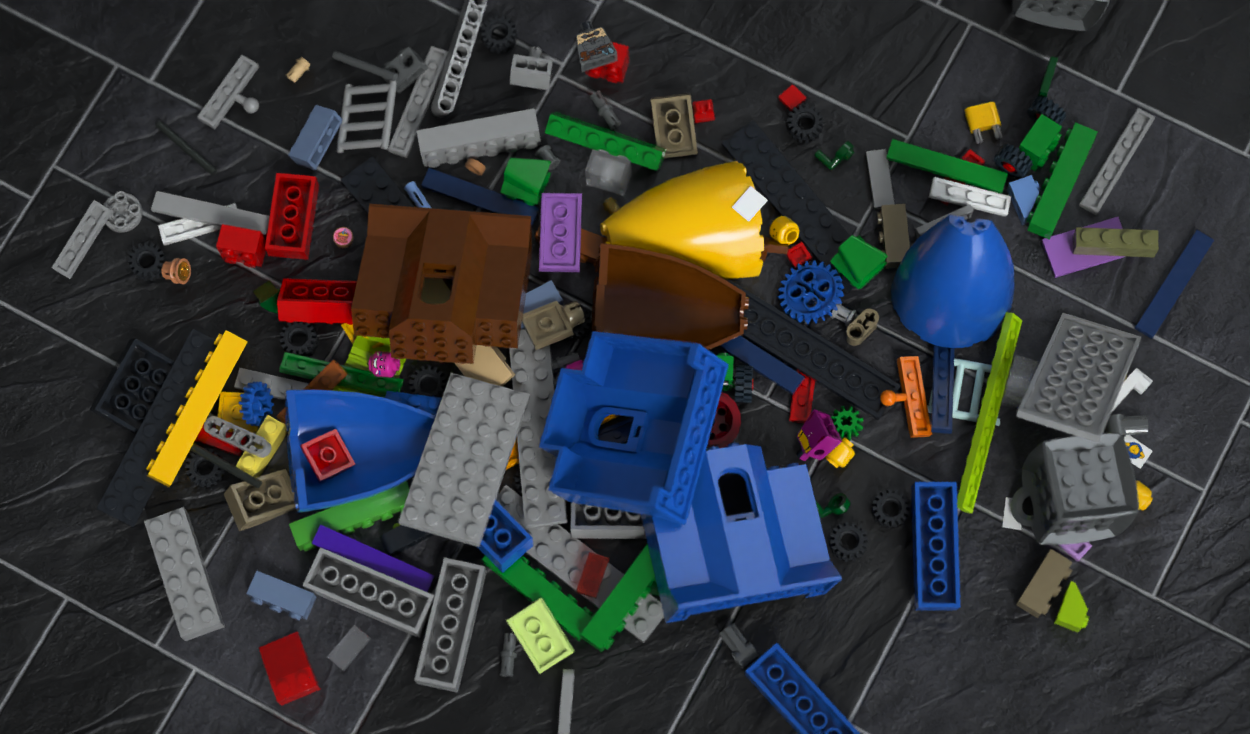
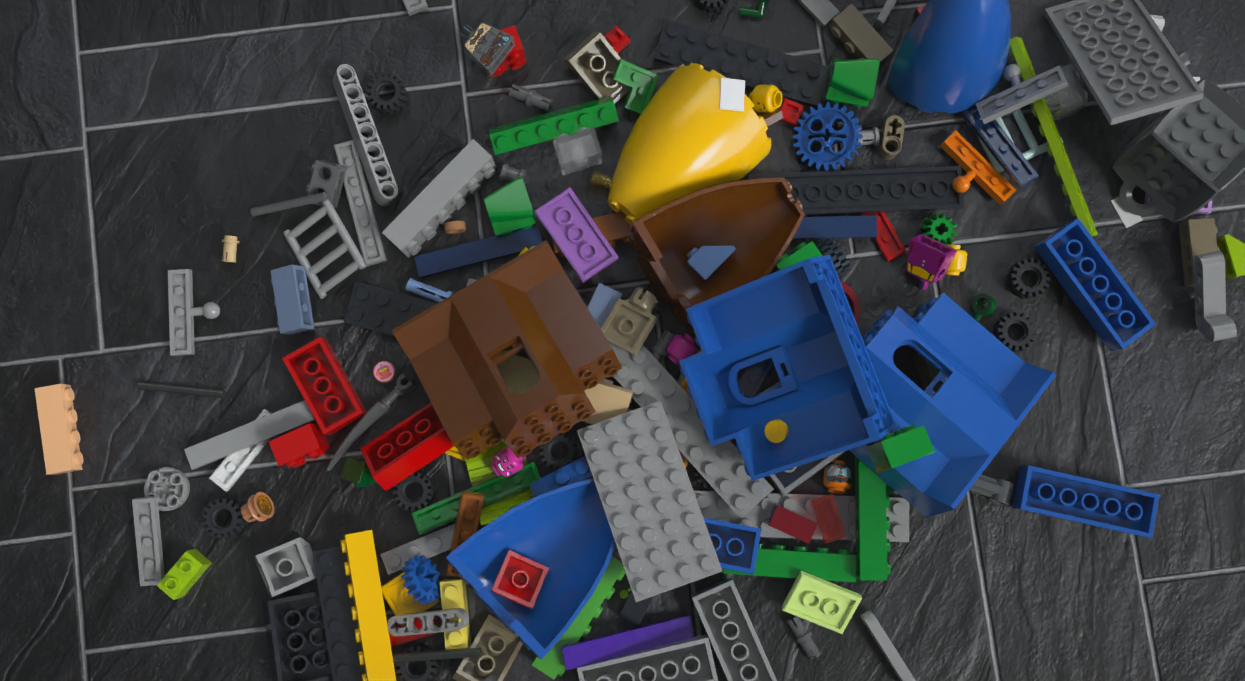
camera: 40 degrees left, 10 degrees up
(78, 115) = (58, 429): none -> light nougat brick
(89, 281) = (184, 574): none -> lime brick
(165, 327) = (286, 566): none -> light grey slope
(307, 262) = (371, 416): none -> dark grey sword
(531, 70) = (441, 106): light grey brick -> none
(562, 561) = (792, 524): none -> dark red tile
(596, 471) = (776, 431): none -> yellow tile
(624, 553) = (837, 477): none -> head
(648, 319) = (708, 259): none -> medium blue slope
(672, 537) = (902, 448): none -> green brick
(696, 152) = (641, 83): none -> green plate
(983, 357) = (1021, 93): none -> light grey plate
(1022, 617) = (1211, 297): none -> light grey beam

